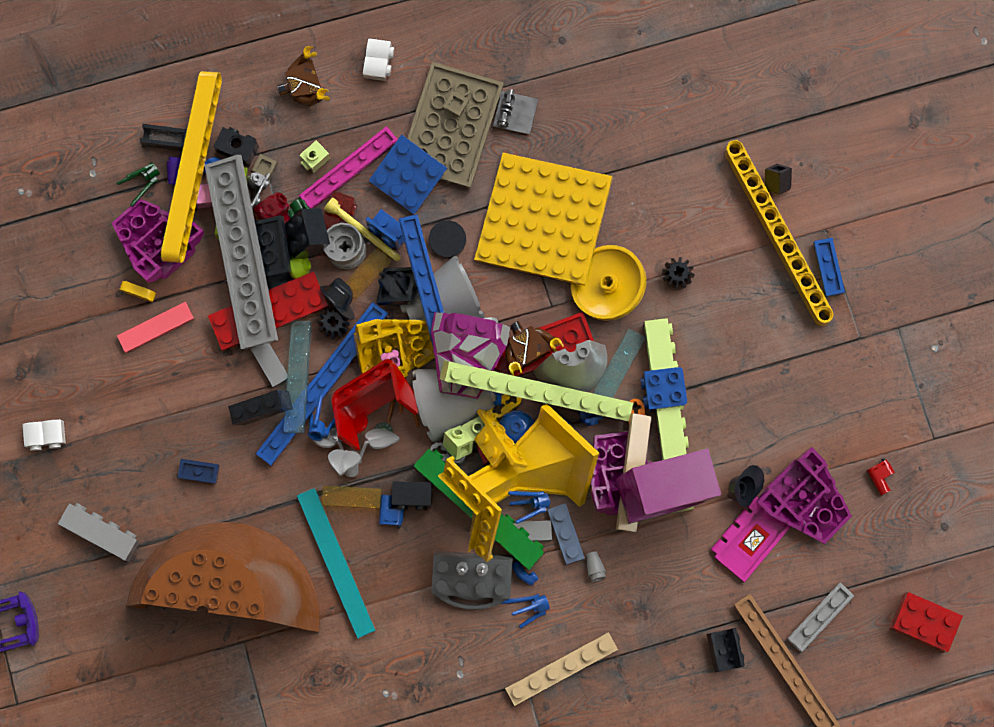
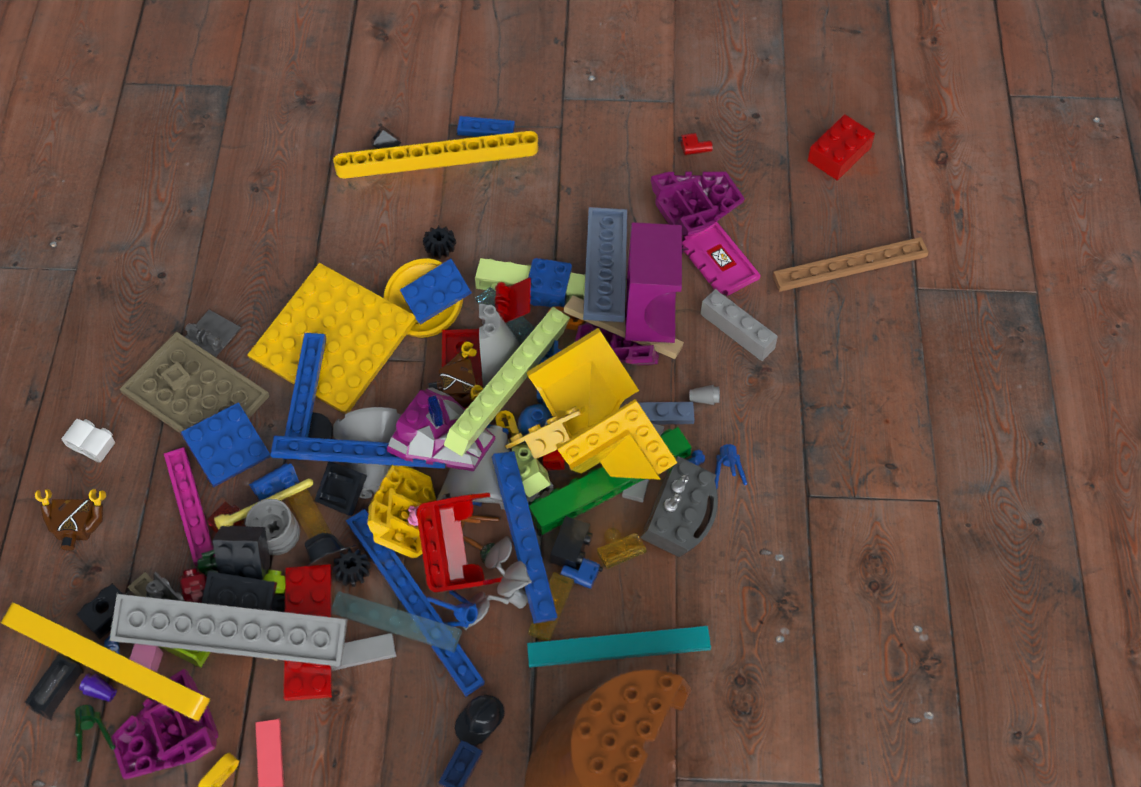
camera: 75 degrees left, 20 degrees down
(242, 472) = (479, 719): none -> black piece
(260, 407) = (415, 668): black brick -> none
(314, 157) = (159, 532): yellowish green brick -> none
(398, 453) = (524, 536): none -> blue plate
(420, 538) = (619, 549): none -> clear yellow plate
(469, 342) = (435, 411): none -> clear blue tile
(478, 218) = (305, 385): none -> blue plate
(561, 669) = (801, 459): tan plate -> none
(613, 292) = (435, 291): none -> blue plate
(629, 364) = (513, 300): none -> red hinge
(678, 576) = (738, 325): none -> light grey brick
(708, 430) = (605, 265): none -> sand blue plate
(725, 650) = (823, 306): black bracket -> none
(820, 617) = (812, 227): light grey tile -> none

